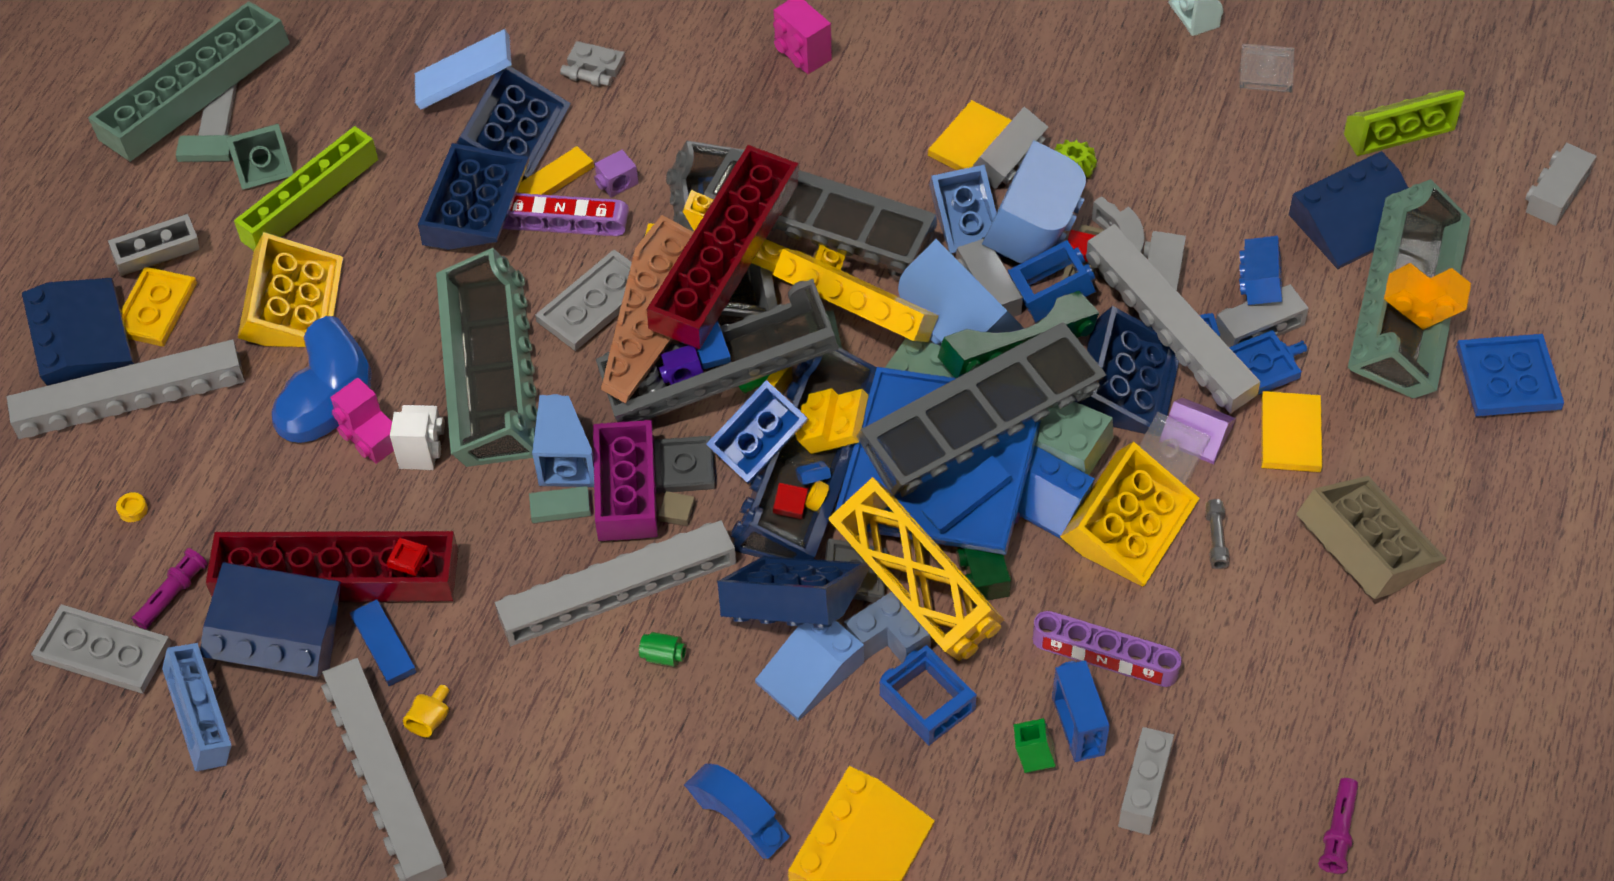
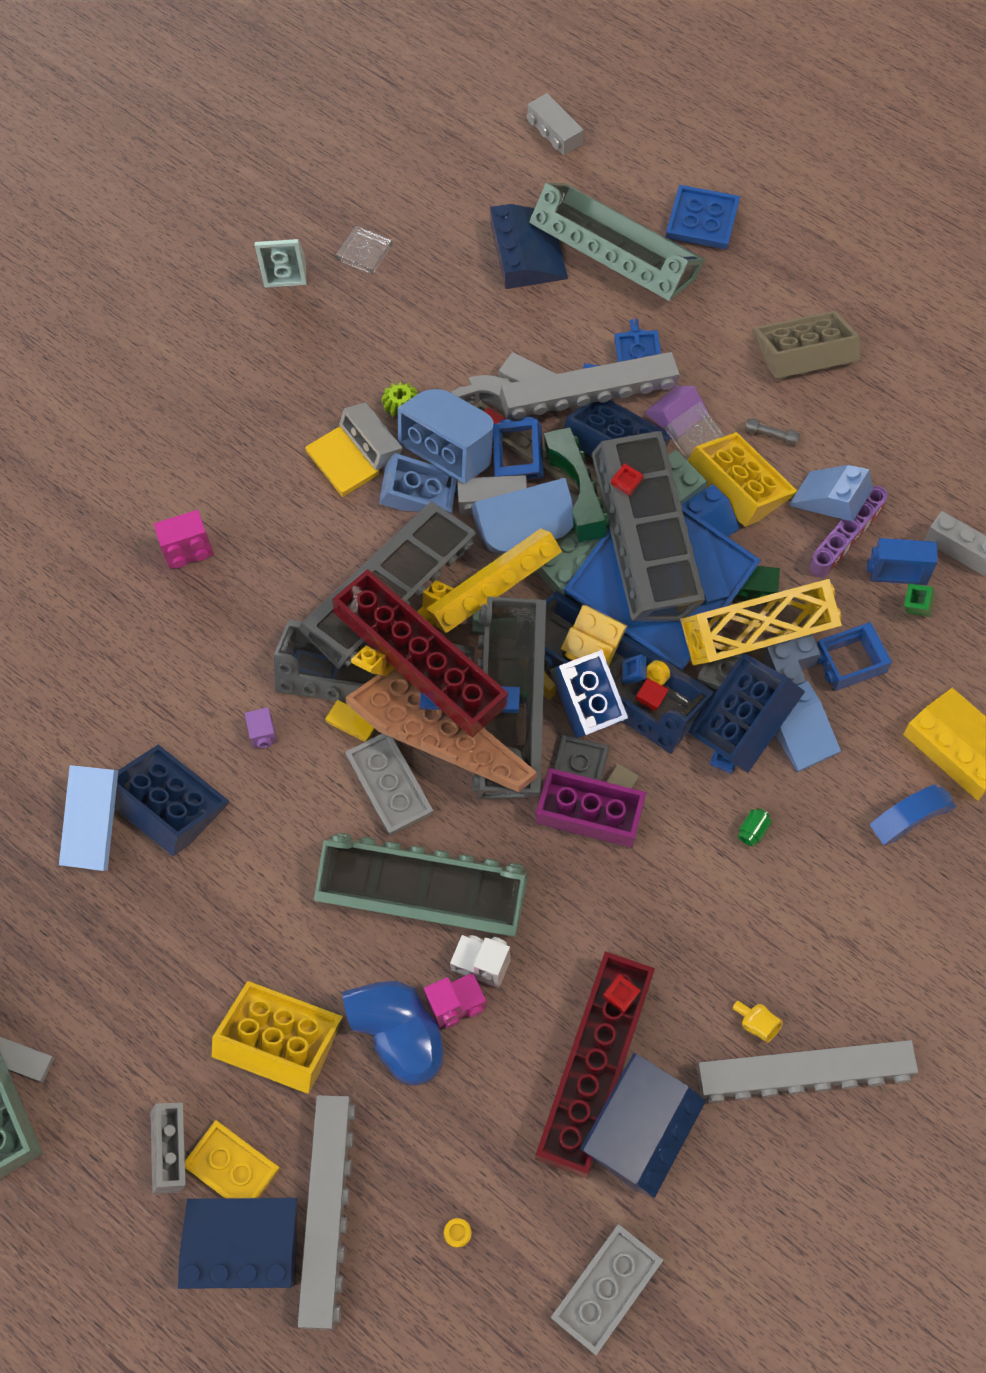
camera: 70 degrees left, 10 degrees up
(177, 579) = (562, 1213): magenta pin -> none
(196, 707) = (702, 1212): medium blue brick -> none
(203, 148) = (56, 1078): sand green tile -> none
(260, 156) = (95, 1026): sand green slope -> none
(308, 188) = (164, 991): lime brick -> none
(383, 642) = (676, 1042): blue tile -> none
(471, 197) = (242, 847): dark blue slope -> none
(557, 173) = (236, 780): yellow tile -> none
(559, 504) = (586, 867): sand green tile -> none
(560, 445) = (539, 844): medium blue slope -> none
(567, 215) = (285, 784): medium lavender beam -> none
(593, 64) = (118, 709): light grey plate -> none
(615, 582) = (682, 846): light grey brick -> none
(677, 359) = (512, 727): dark purple brick -> none
(1020, 359) = (627, 479): none -> red tile
(1146, 615) = (834, 491): none -> medium blue slope
(1250, 321) = (599, 335): light grey brick -> none
(1261, 270) = (566, 316): blue brick -> none
(1291, 431) = (702, 357): yellow tile -> none
(1403, 121) = (458, 186): lime slope -> none
(1425, 298) = (638, 228): light orange brick -> none

